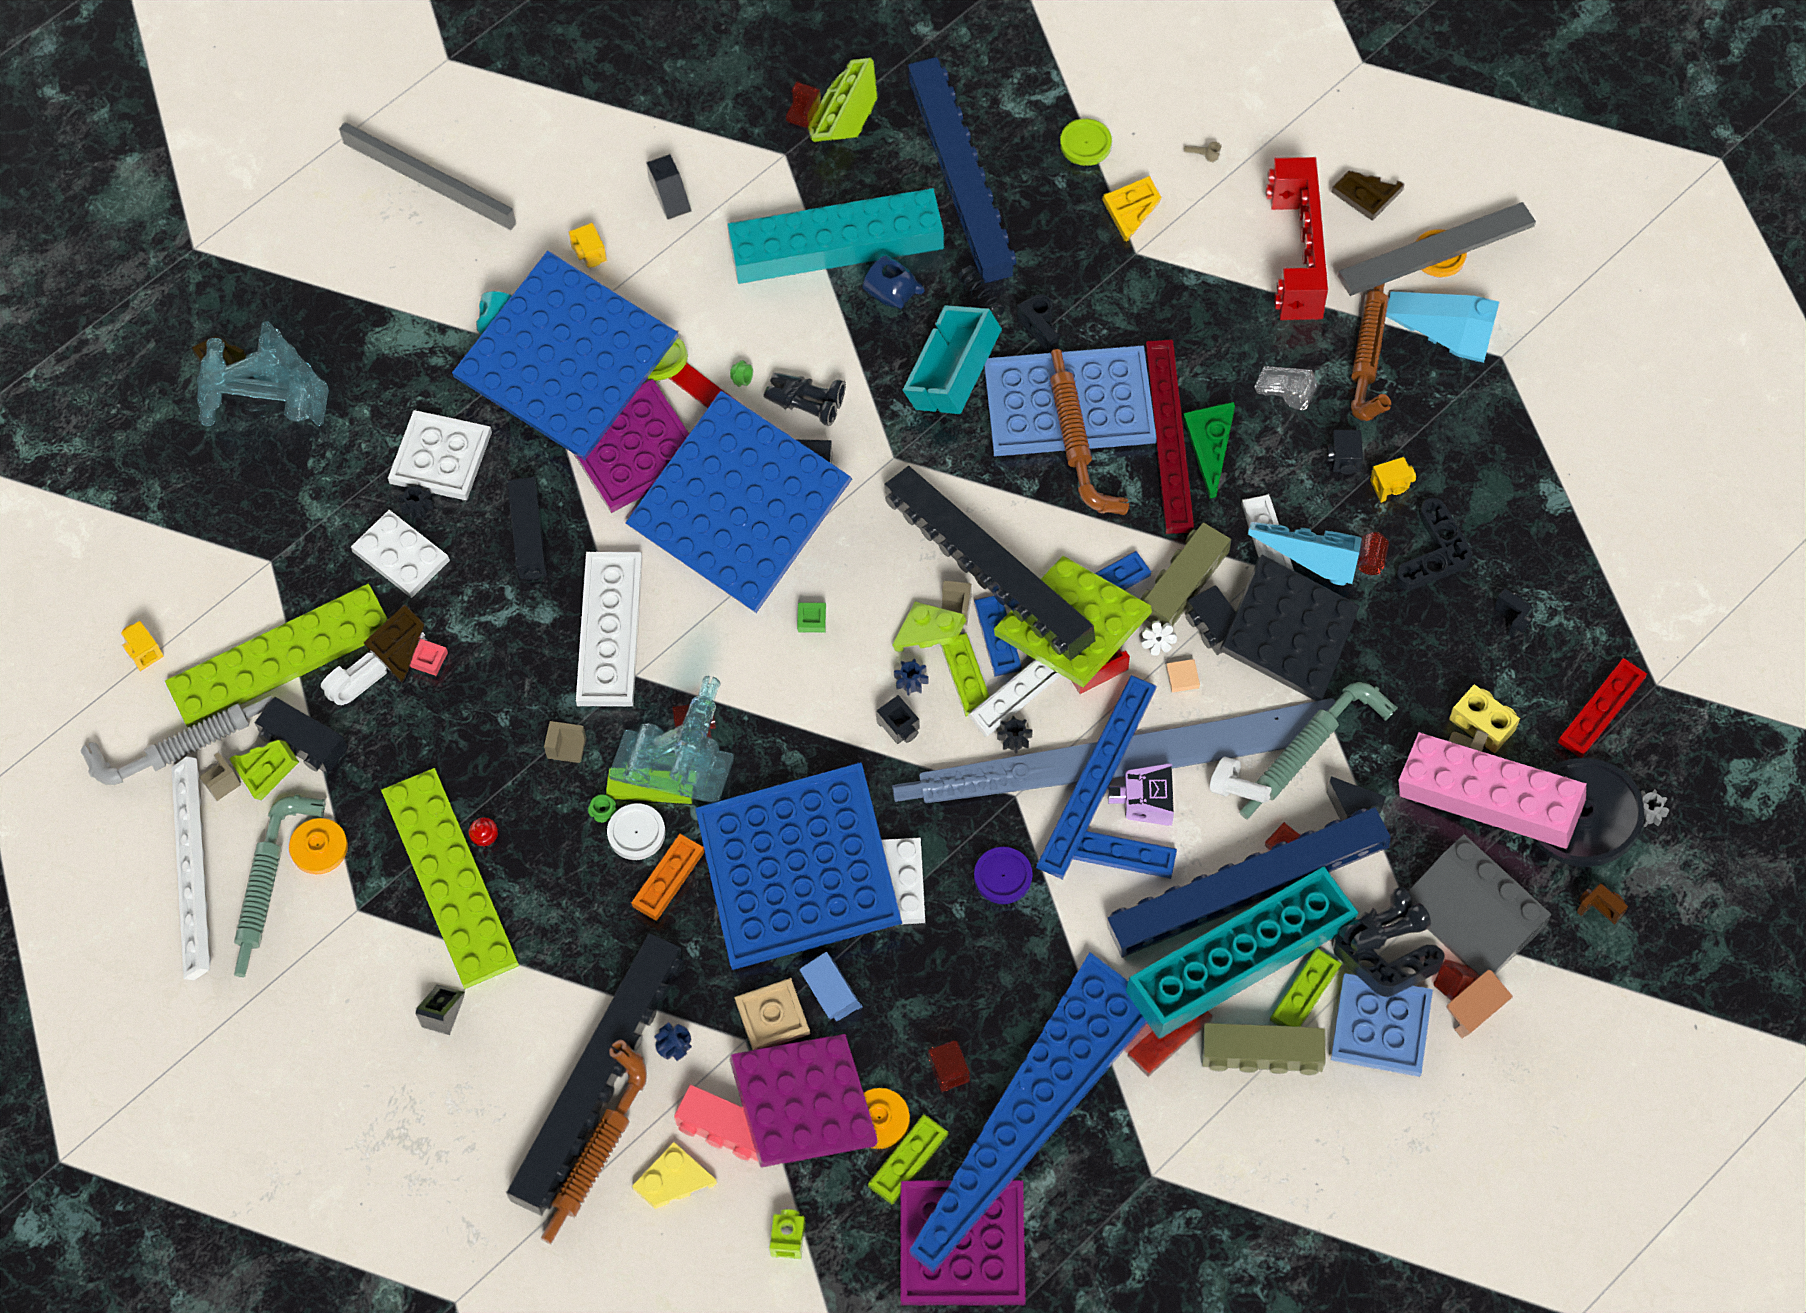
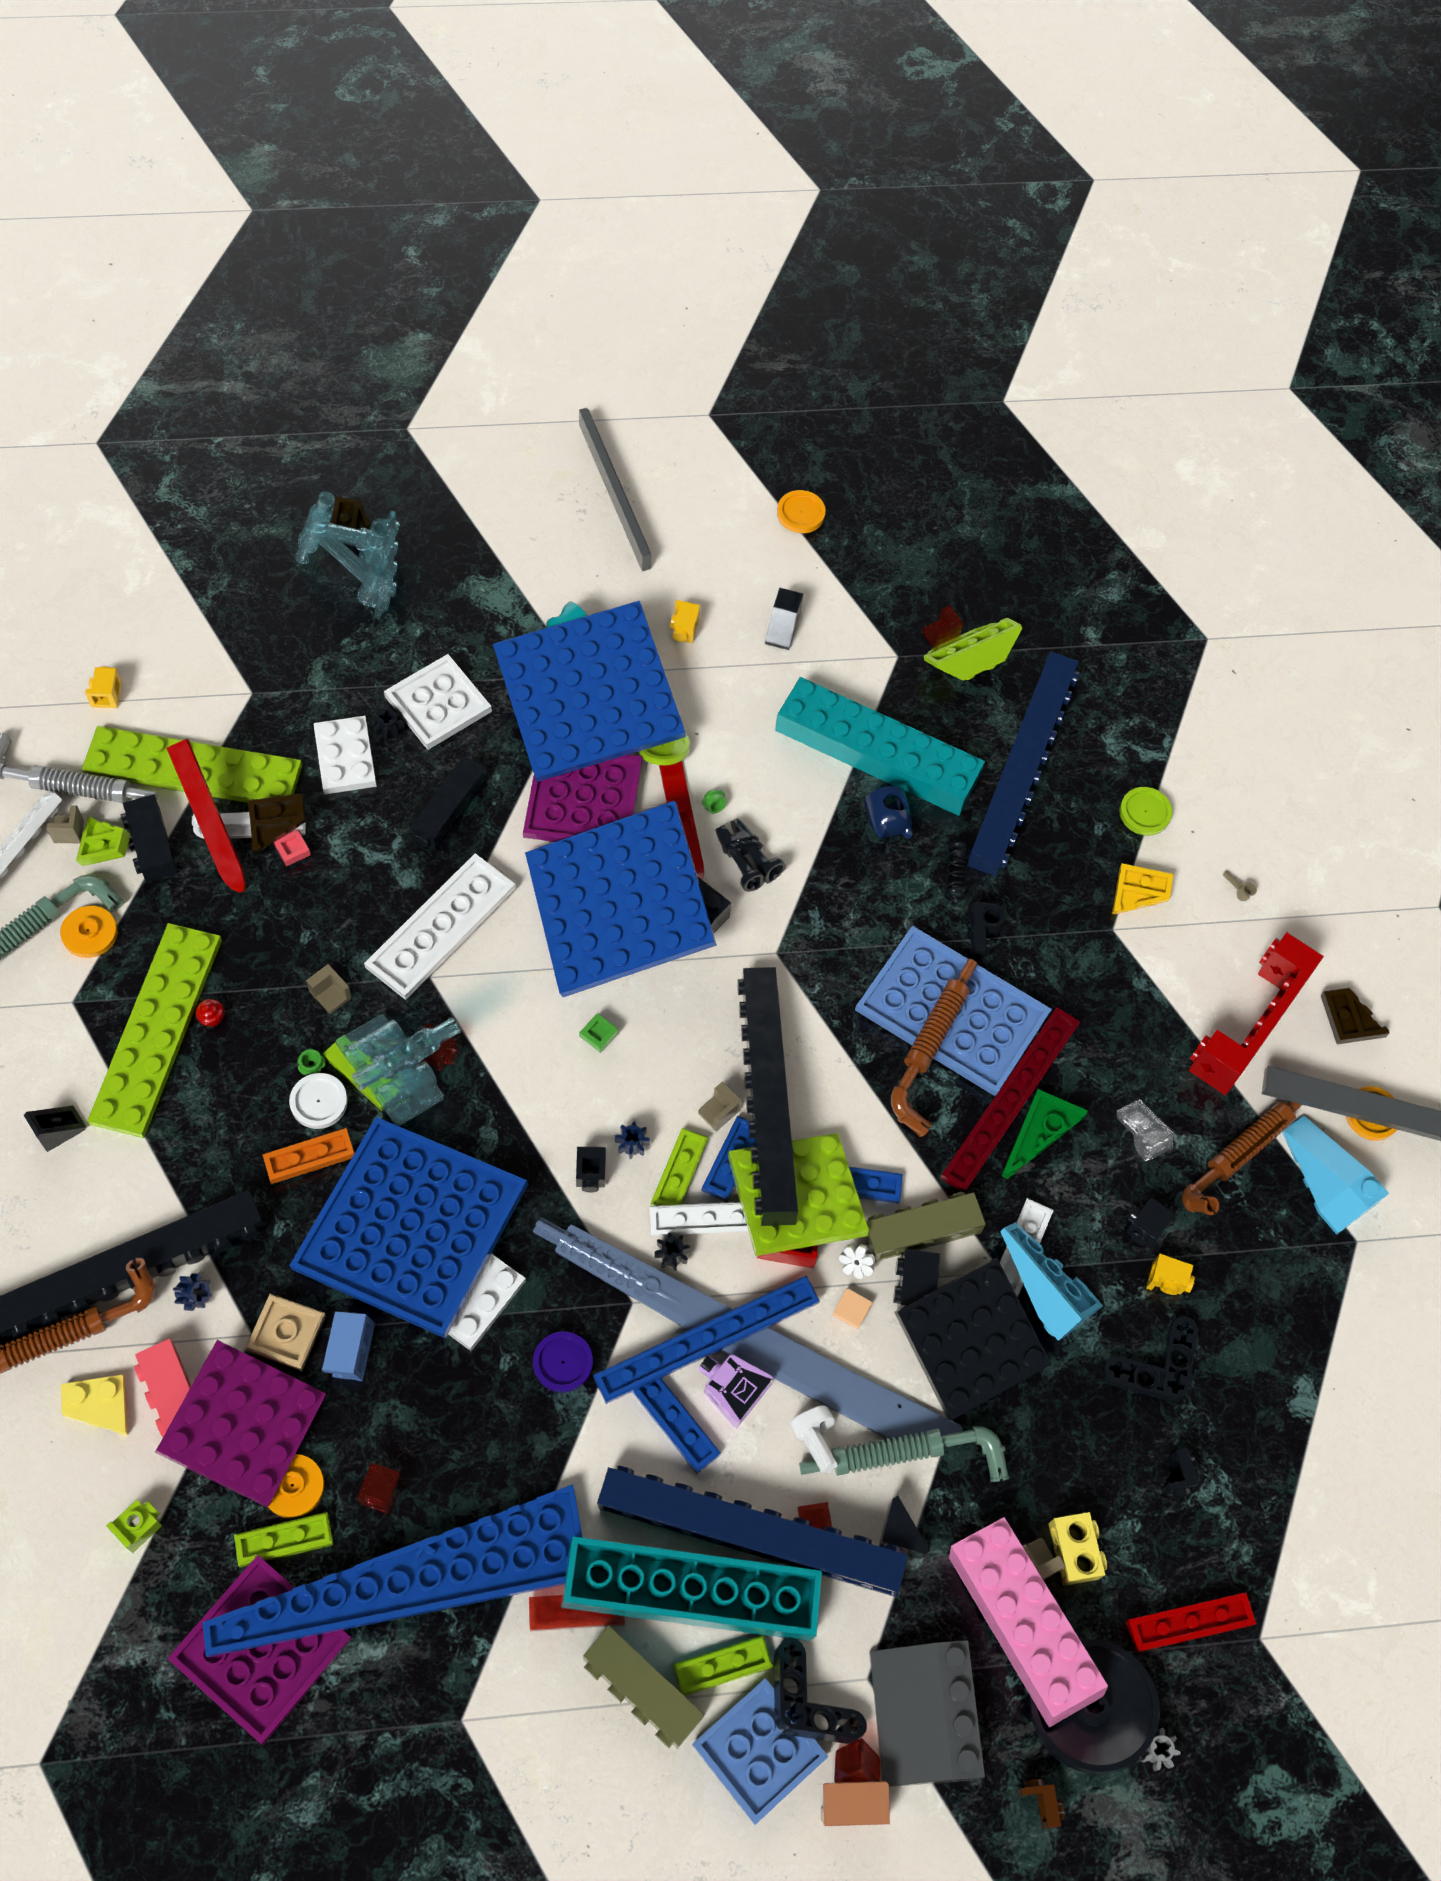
camera: 30 degrees right, 0 degrees up
(341, 676) = (207, 815): none -> red piece
(602, 88) = (801, 511): none -> light orange piece
(929, 626) = (681, 1110): lime wing -> none
(949, 372) = (875, 914): teal piece -> none
(1371, 929) = (811, 1659): black piece -> none
(1372, 553) = (1099, 1327): clear red brick -> none

